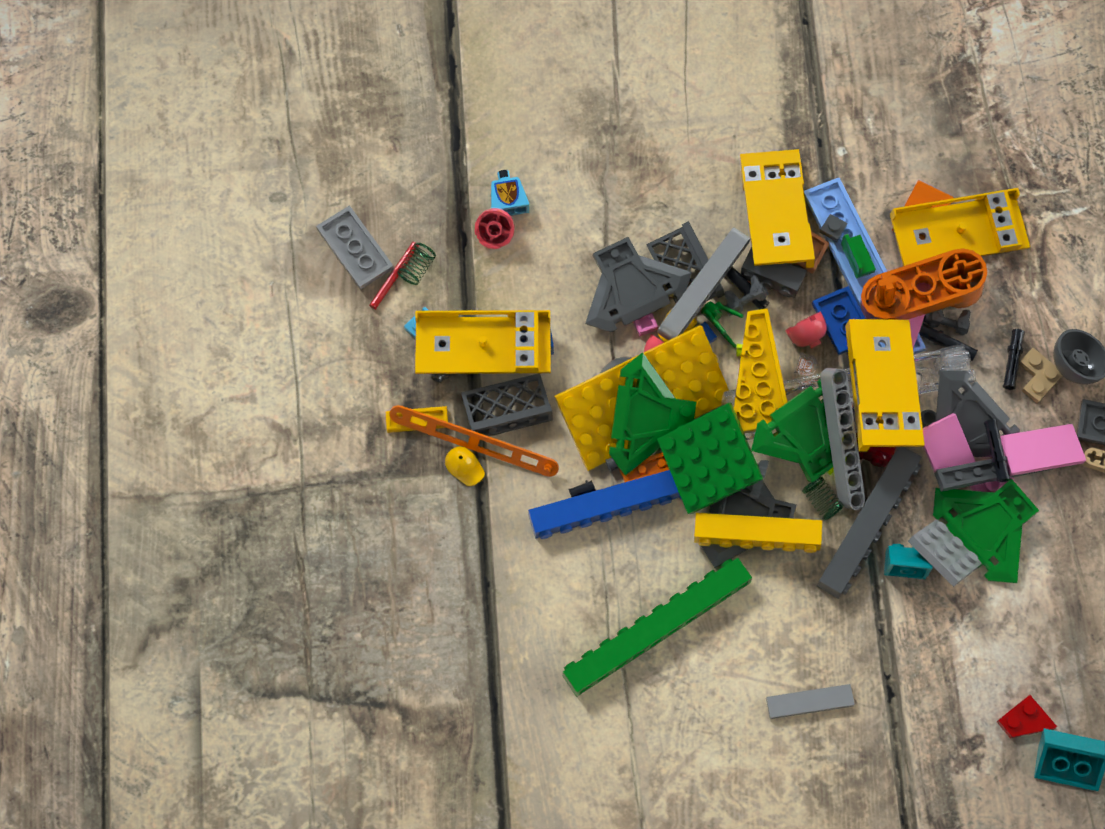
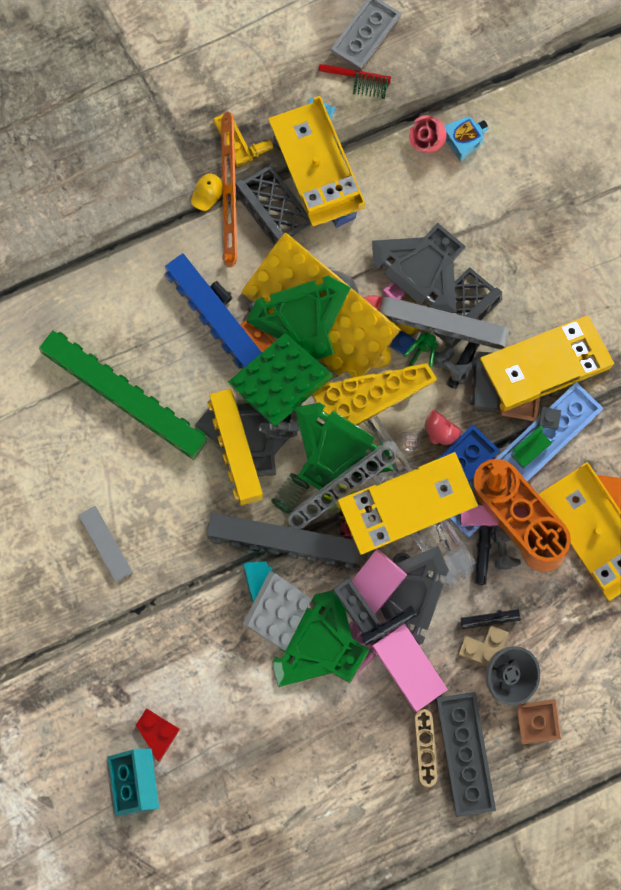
camera: 65 degrees right, 5 degrees up
(439, 397) = (260, 148): none -> yellow pin

